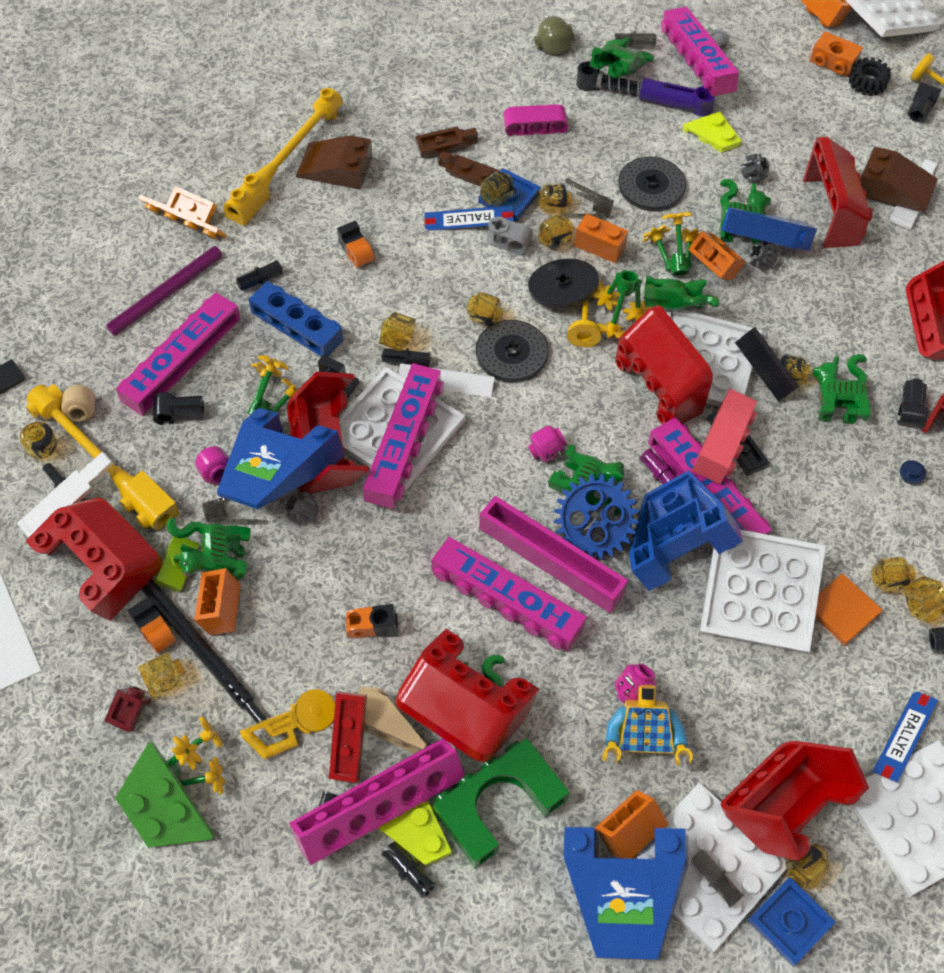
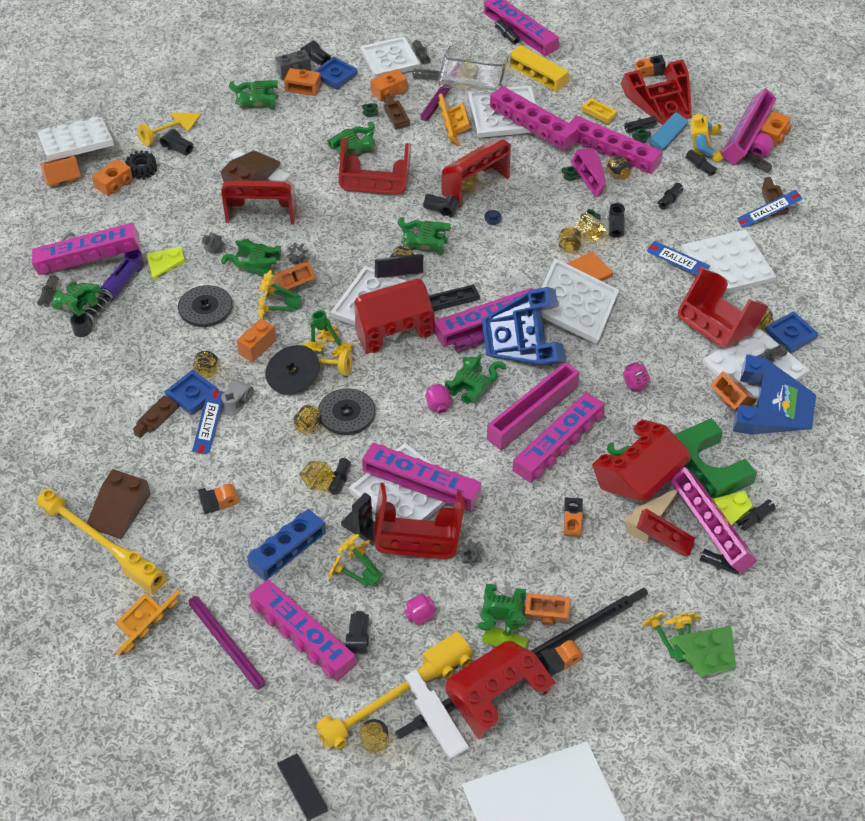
camera: 80 degrees left, 10 degrees down
(78, 403) = (339, 705): tan head -> none
(127, 708) = (628, 675): dark red bracket -> none
(151, 670) = (603, 659): clear yellow brick -> none
(216, 509) = (460, 612): clear smoke plant -> none
(259, 275) = (230, 569): black axle -> none
(271, 463) = (438, 562): blue wedge -> none
(311, 712) = (644, 571): yellow piece -> none
(445, 140) = (119, 428): reddish brown hinge -> none
(460, 381) = (356, 472): white sticker -> none
(497, 188) = (192, 392): clear yellow head -> none
(535, 119) = (116, 365): dark pink beam -> none
(554, 36) = (26, 339): olive plant -> none
(555, 231) = (242, 365): clear yellow head -> none
(601, 205) = (221, 337): clear smoke plant -> none
(615, 532) = (507, 374): blue gear -> none
(646, 727) = (669, 372): torso -> none
(675, 294) = (324, 301): green animal -> none
(724, 437) = (459, 295): coral brick -> none
(769, 228) = (285, 236): blue slope -> none

